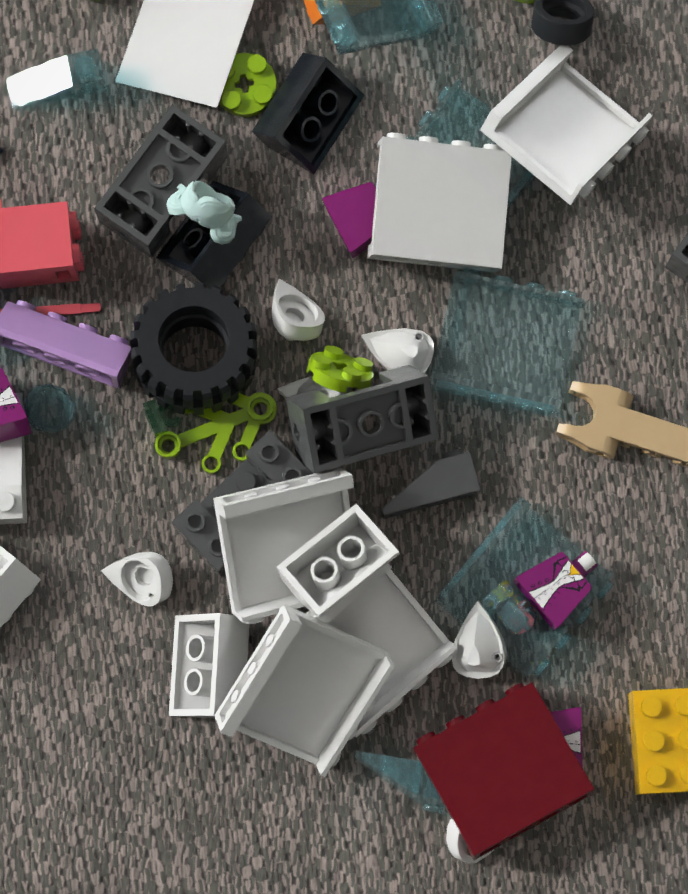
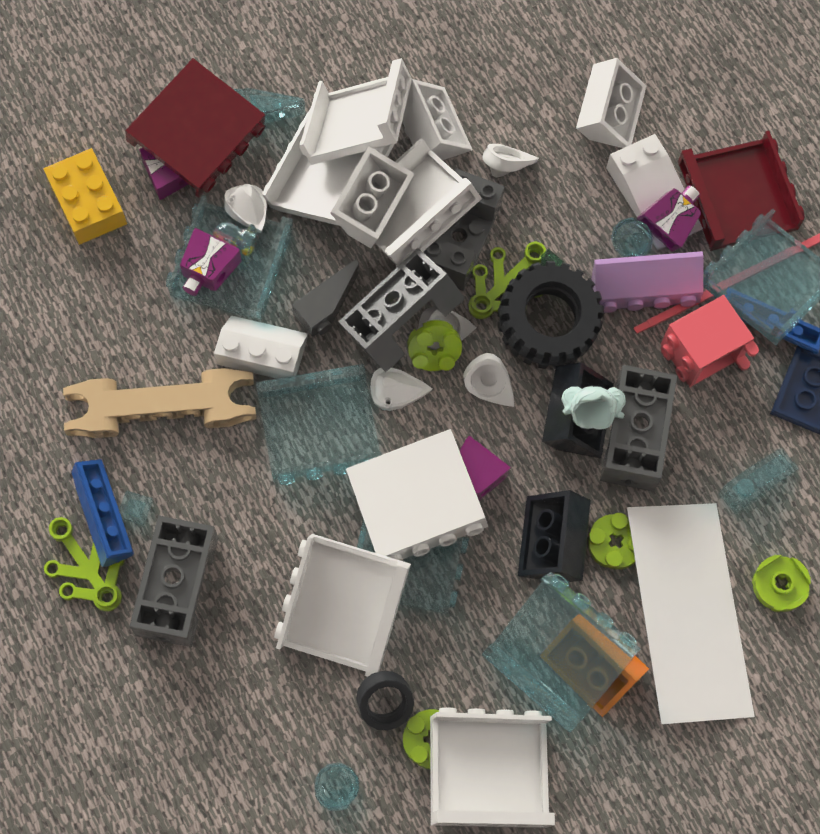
camera: 155 degrees right, 10 degrees down
(532, 462) = (260, 348): none -> white slope

